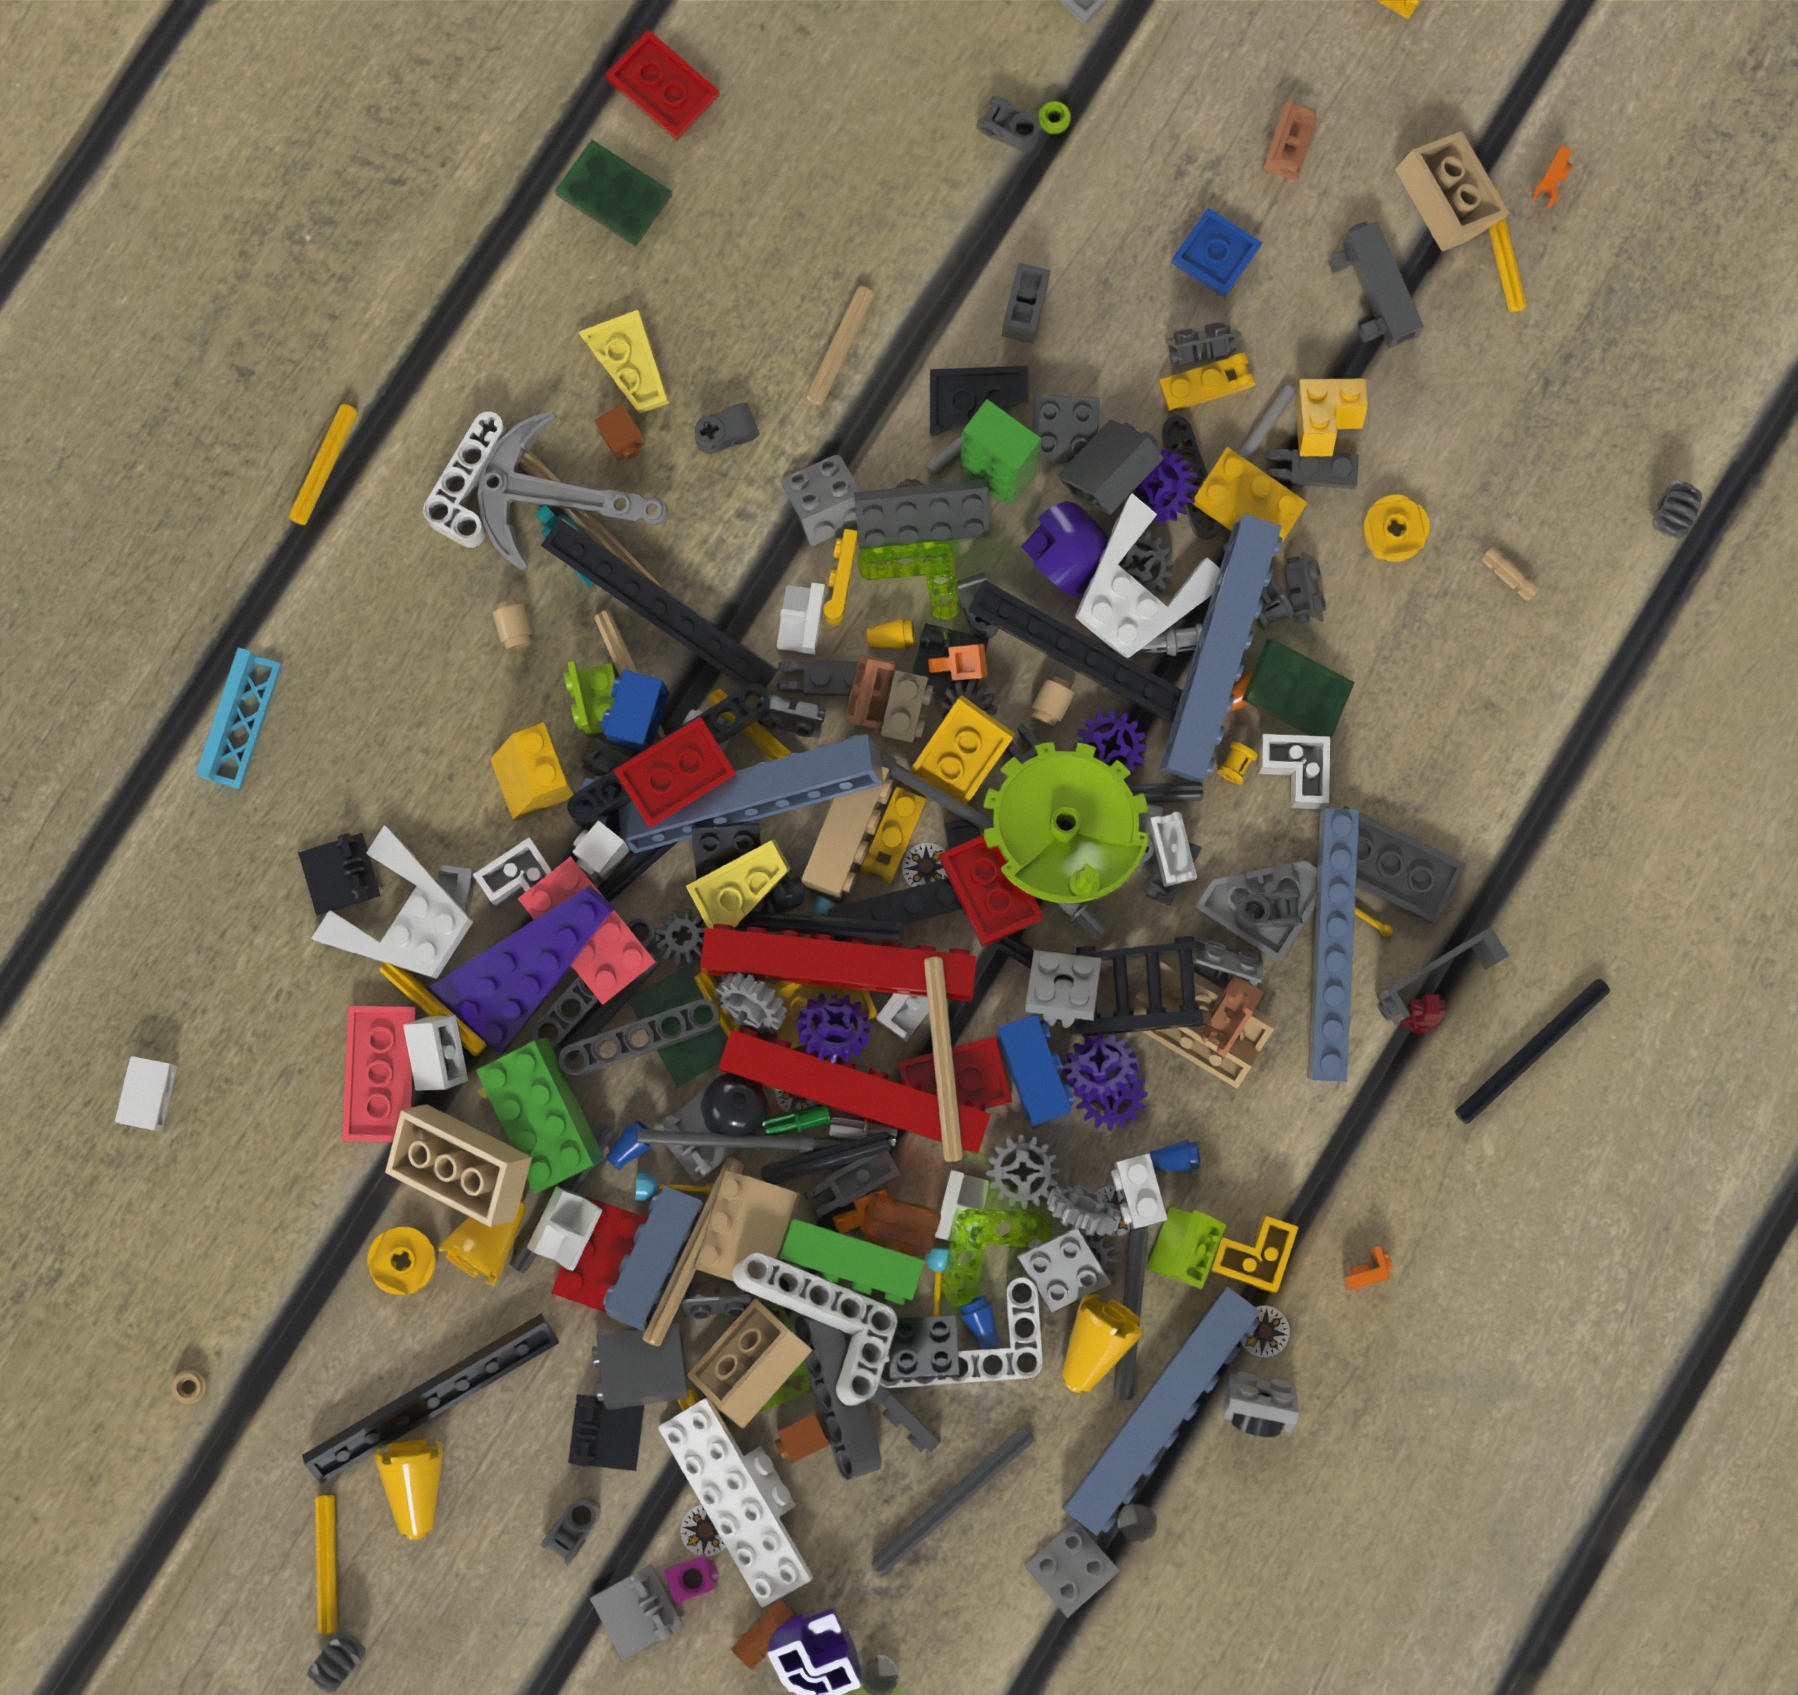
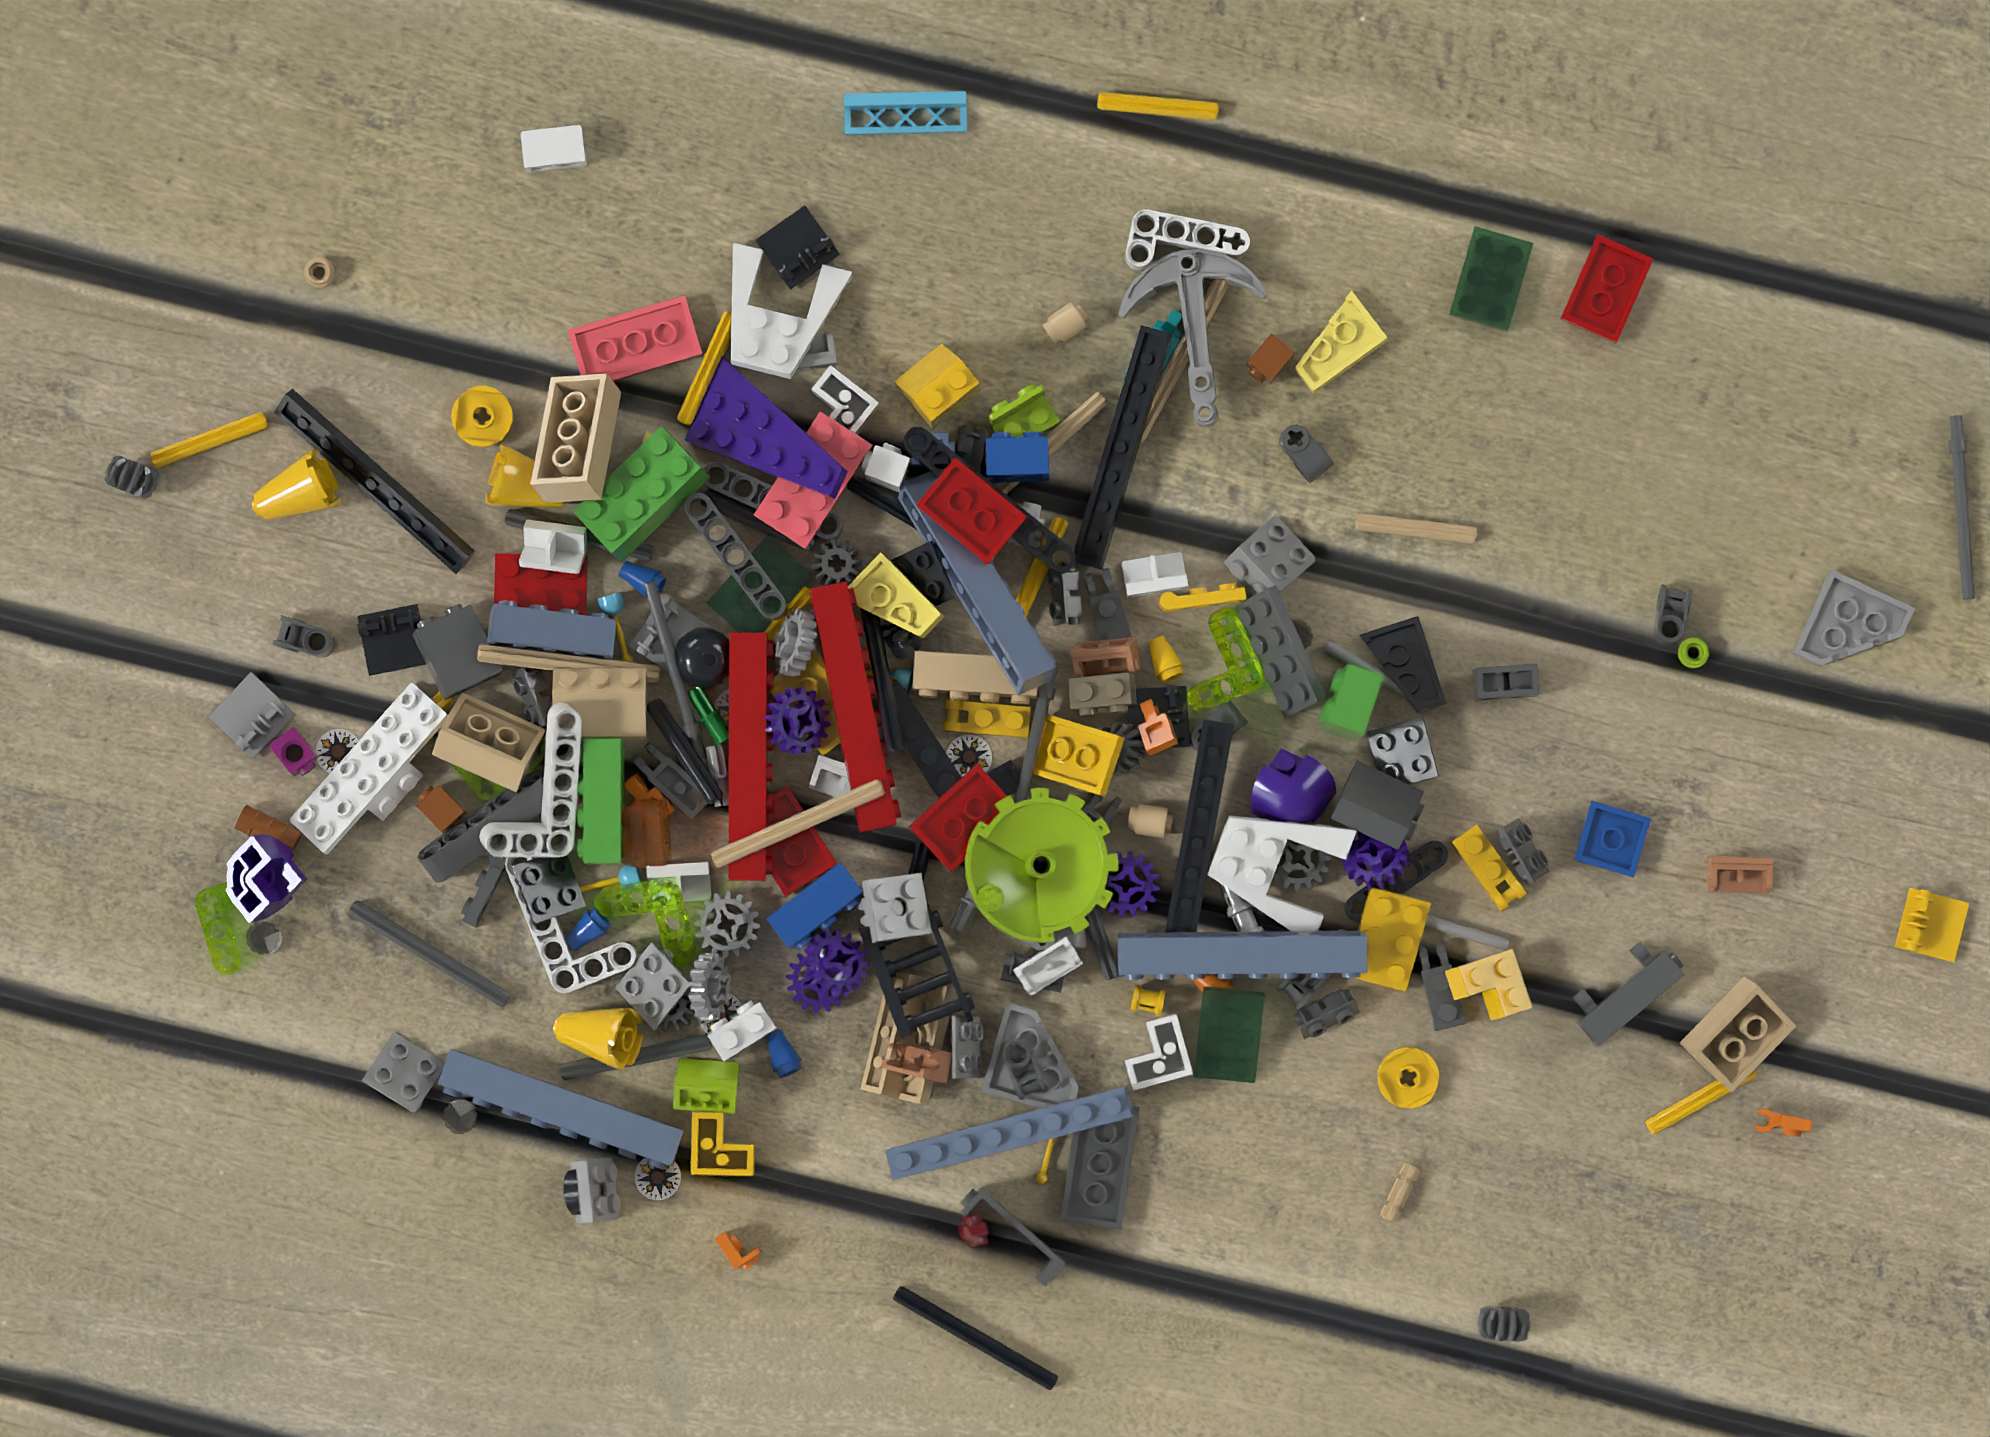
camera: 70 degrees right, 5 degrees up
(435, 1052) = (667, 385): white brick -> none

